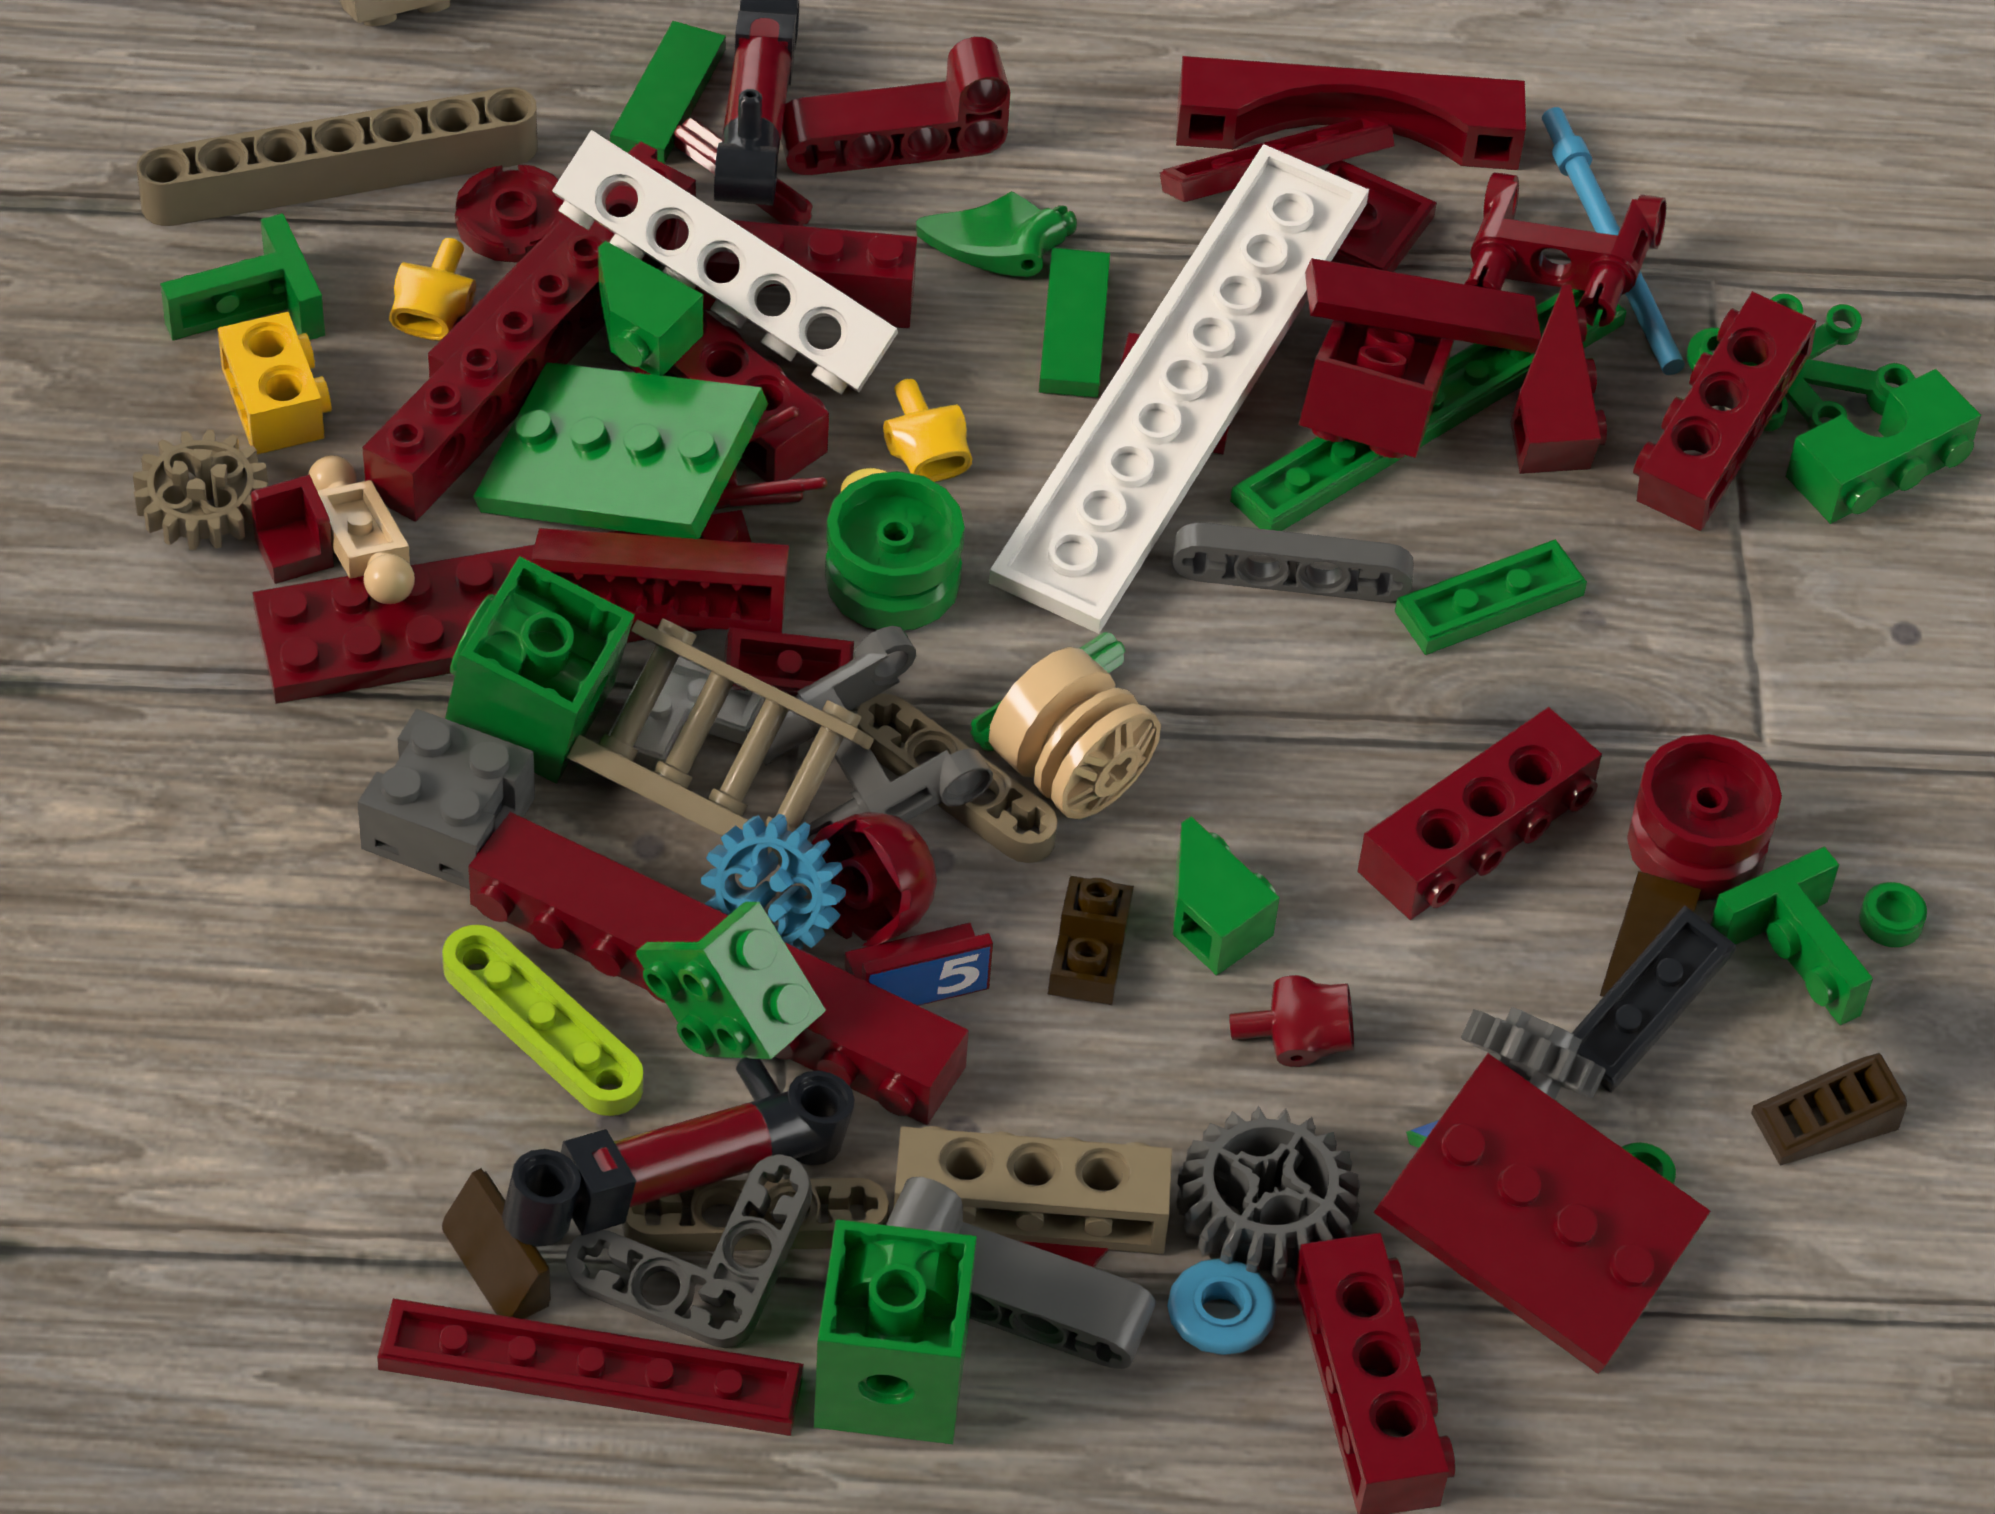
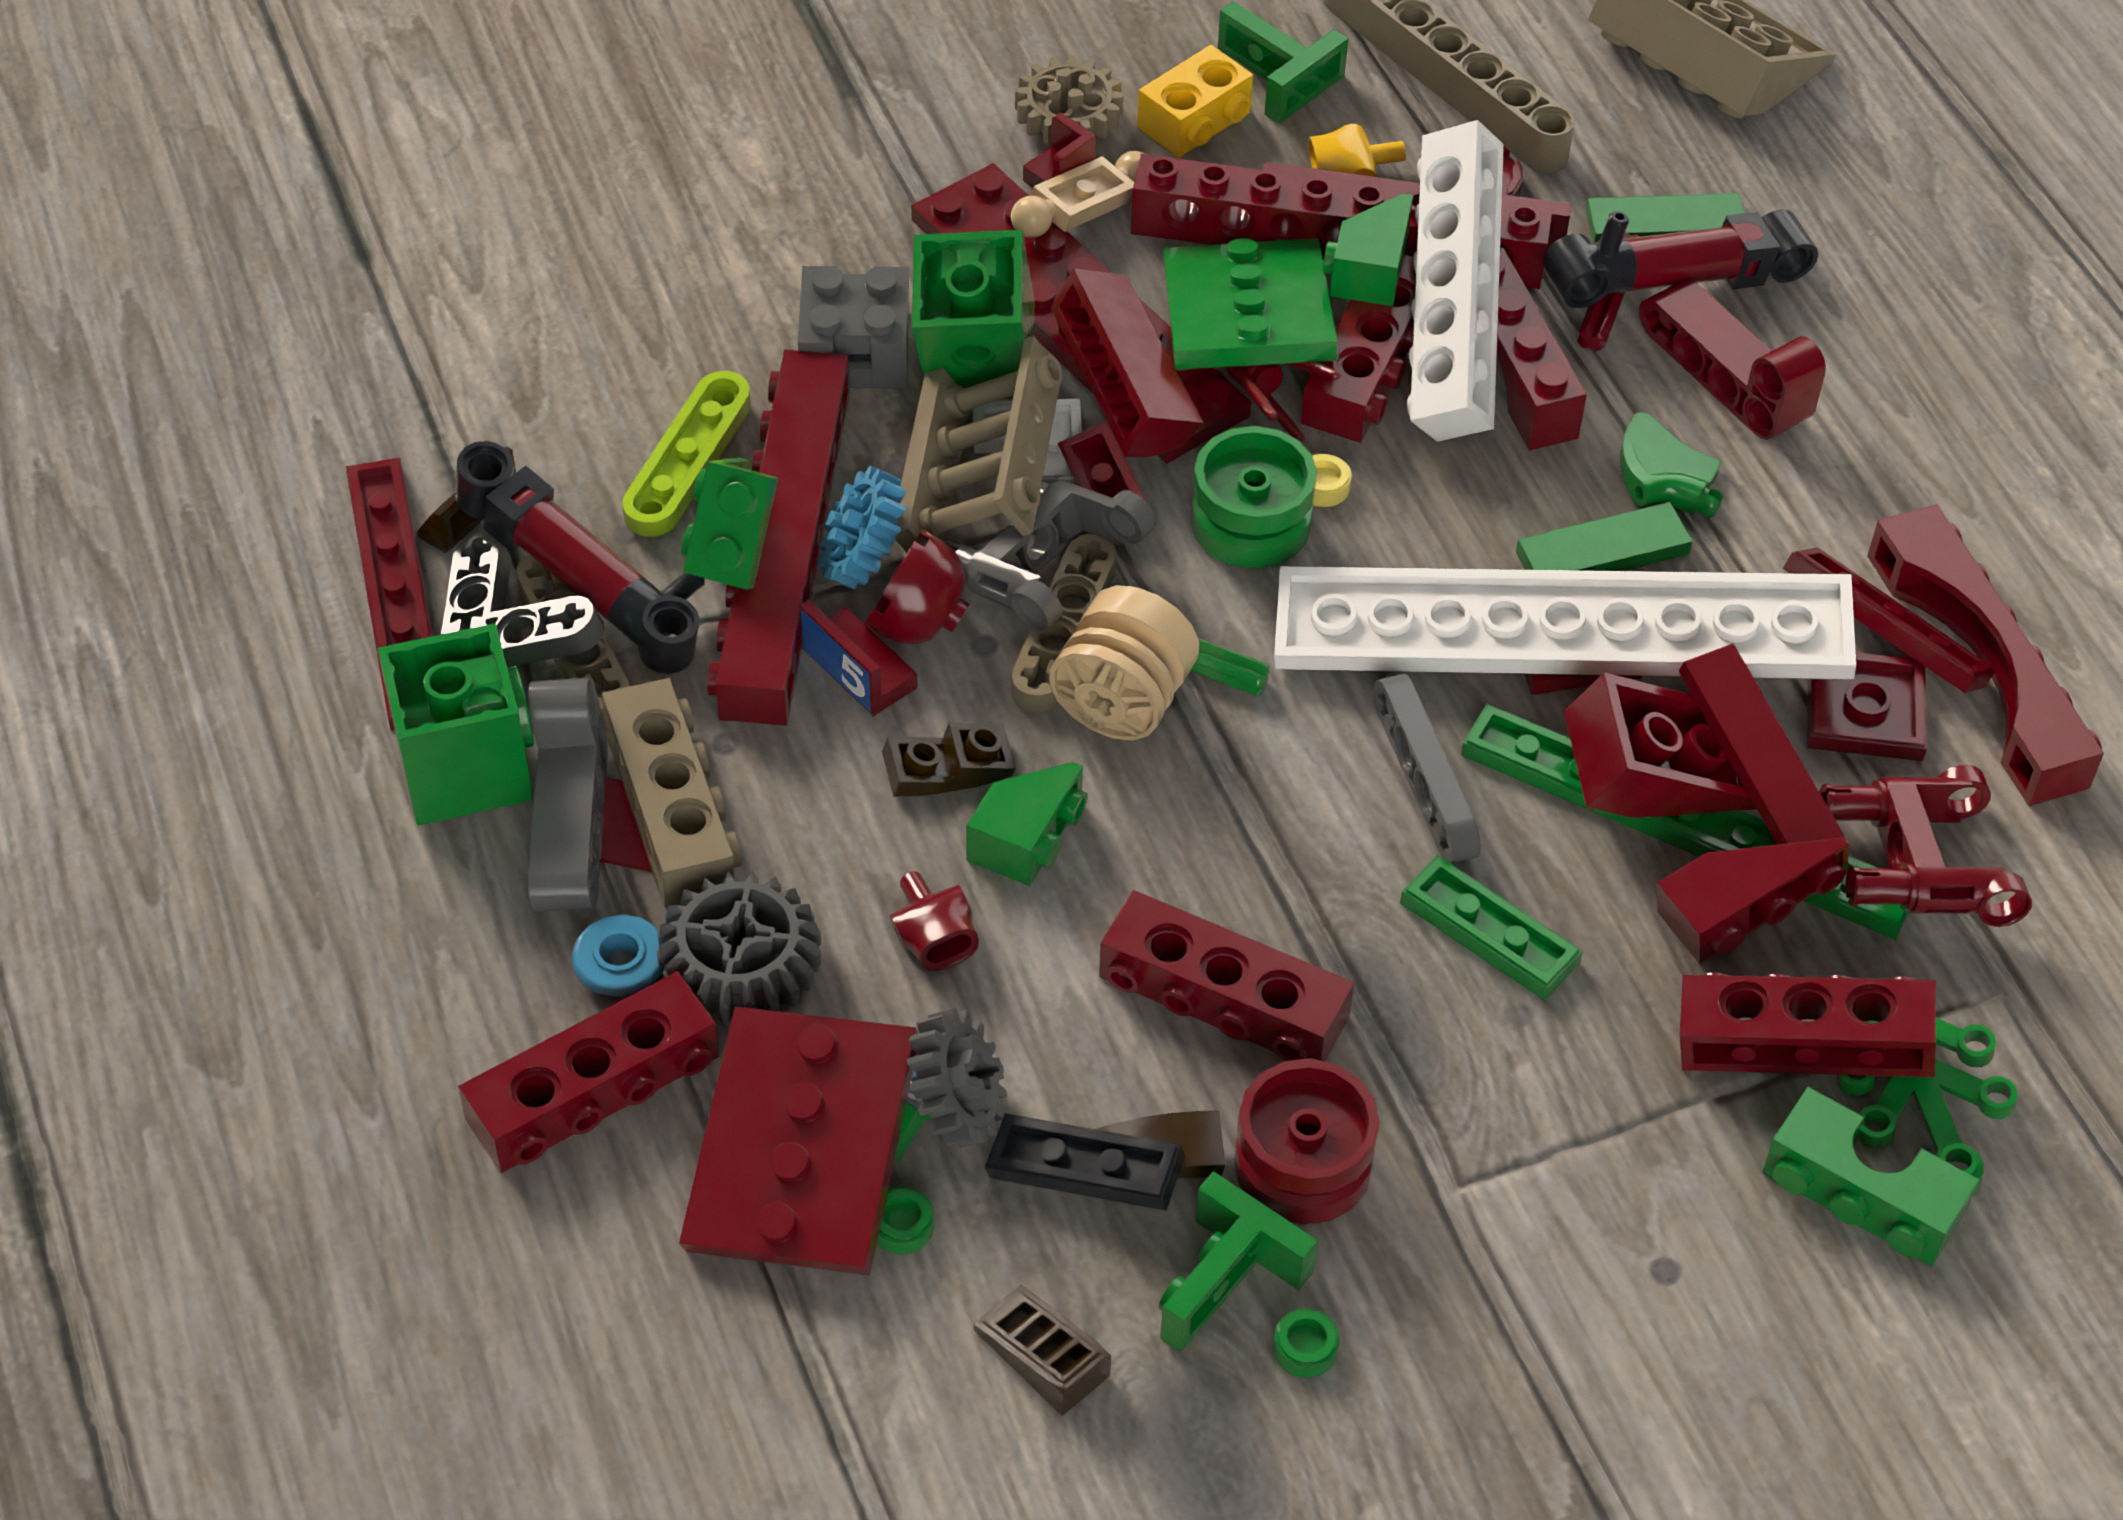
camera: 70 degrees right, 0 degrees up
(927, 439) = (1404, 492): yellow piece -> none
(1575, 161) = (2060, 837): dark azure bar -> none

